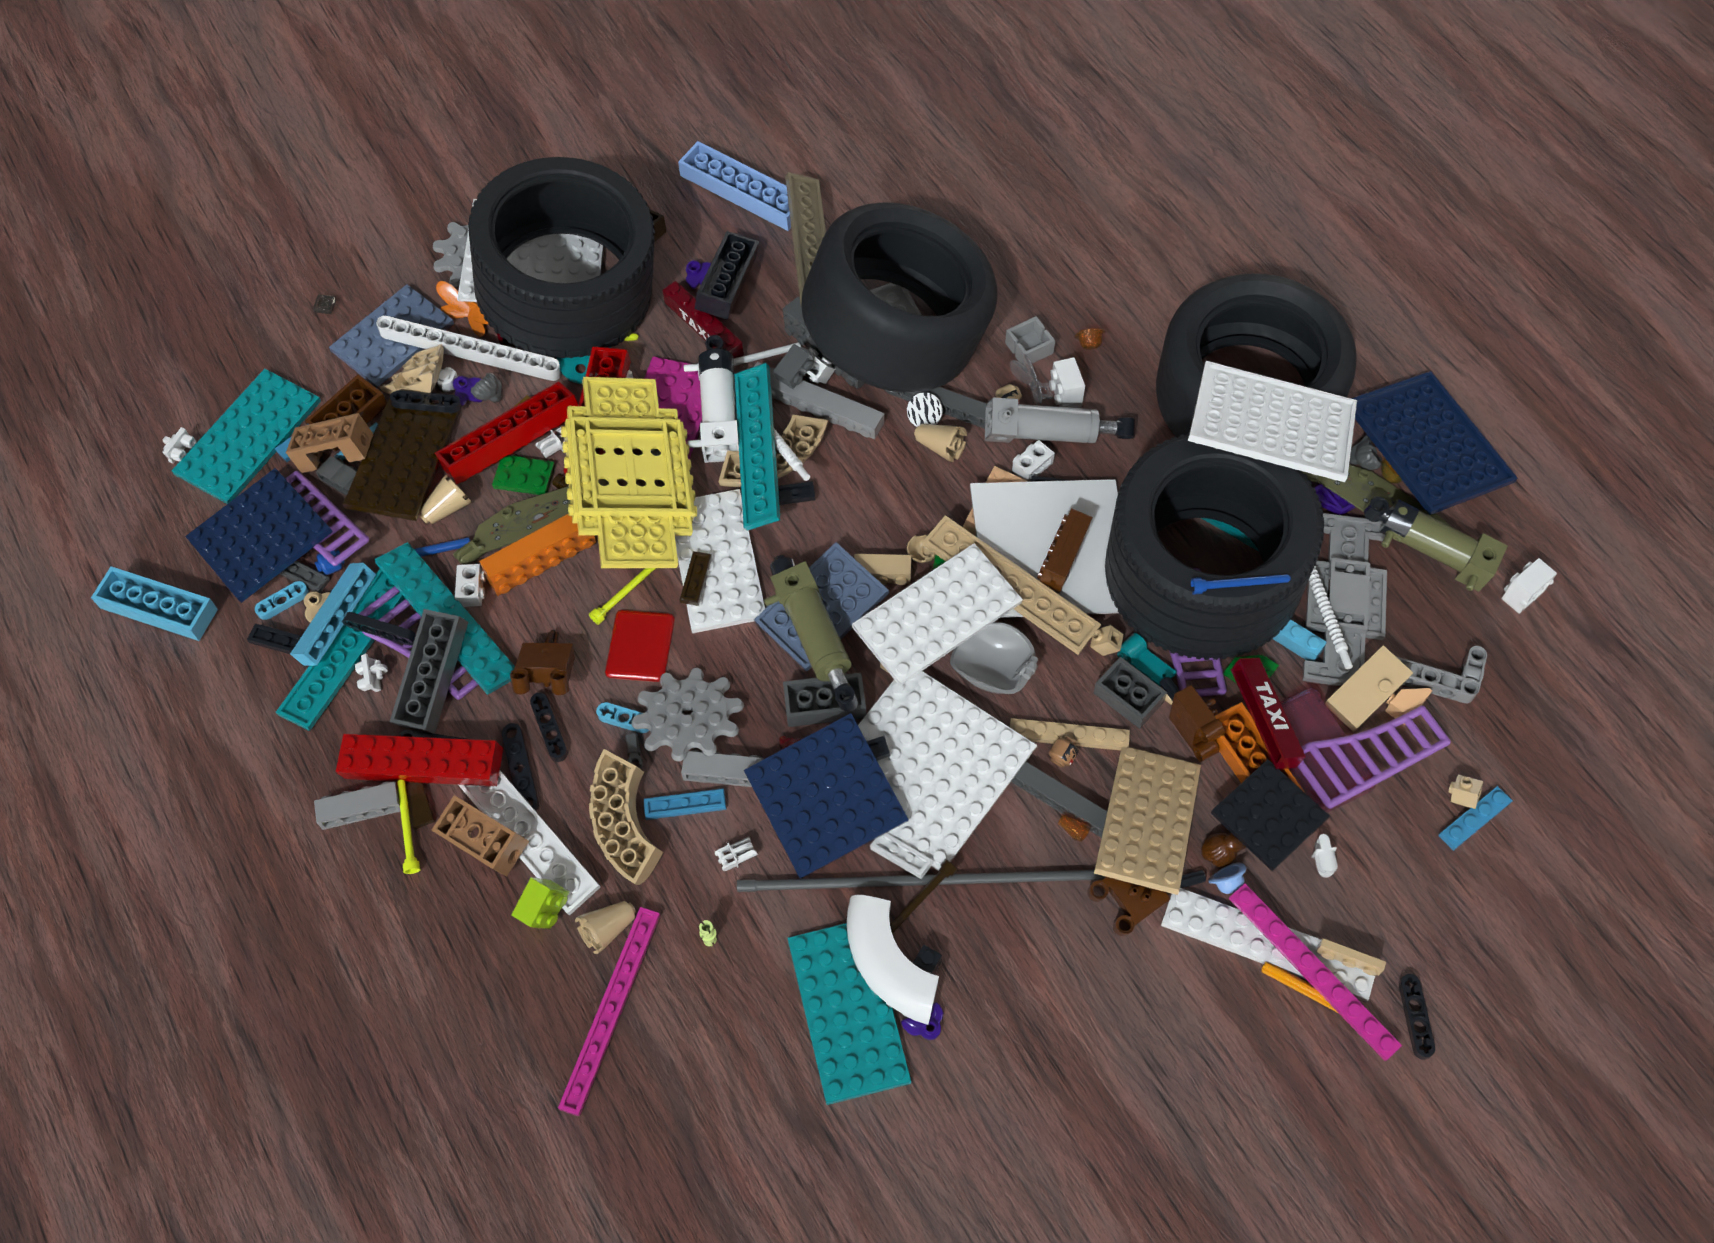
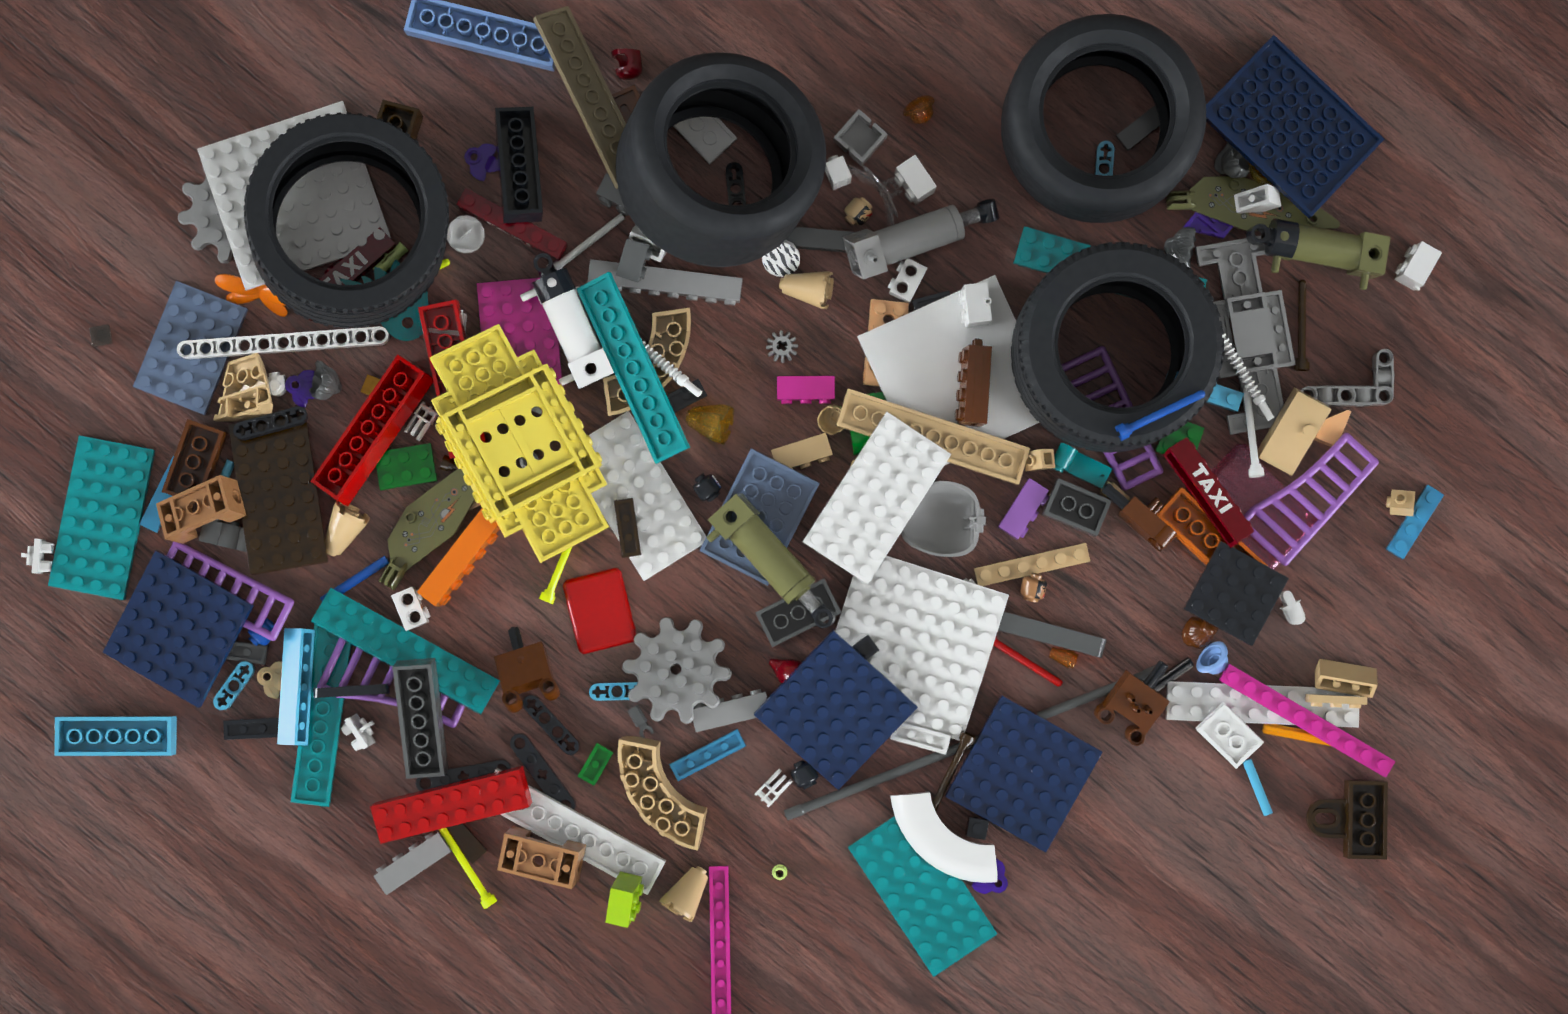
camera: 25 degrees left, 25 degrees up
(573, 775) = (595, 764): none -> green plate
(661, 321) = (465, 234): none -> white tile
(771, 852) = (804, 775): none -> black head
(811, 517) = (712, 421): none -> clear yellow cone
(898, 479) = (780, 353): none -> light grey gear
(906, 517) = (806, 389): none -> dark pink brick
(995, 926) = (1023, 773): none -> dark blue plate
(1000, 360) = (837, 172): none -> white brick
(1033, 820) = (1028, 663): none -> red piece
(1076, 680) = (1024, 509): none -> medium lavender brick
(1088, 487) = (975, 306): none -> white brick
(1148, 820) = (1130, 633): tan plate -> none
(1225, 959) = (1229, 735): none -> white tile
(1241, 1027) = (1257, 787): none -> medium azure piece
(1274, 421) = (1145, 216): white plate -> none
(1321, 709) = (1255, 468): none -> white piece
(1345, 1093) = (1359, 819): none -> dark brown brick
(1366, 940) = (1346, 678): none -> tan brick
(1388, 486) = (1258, 199): none -> white slope
(1391, 640) = (1302, 362): none -> dark brown piece
(1416, 1016) = (1399, 728): black beam -> none

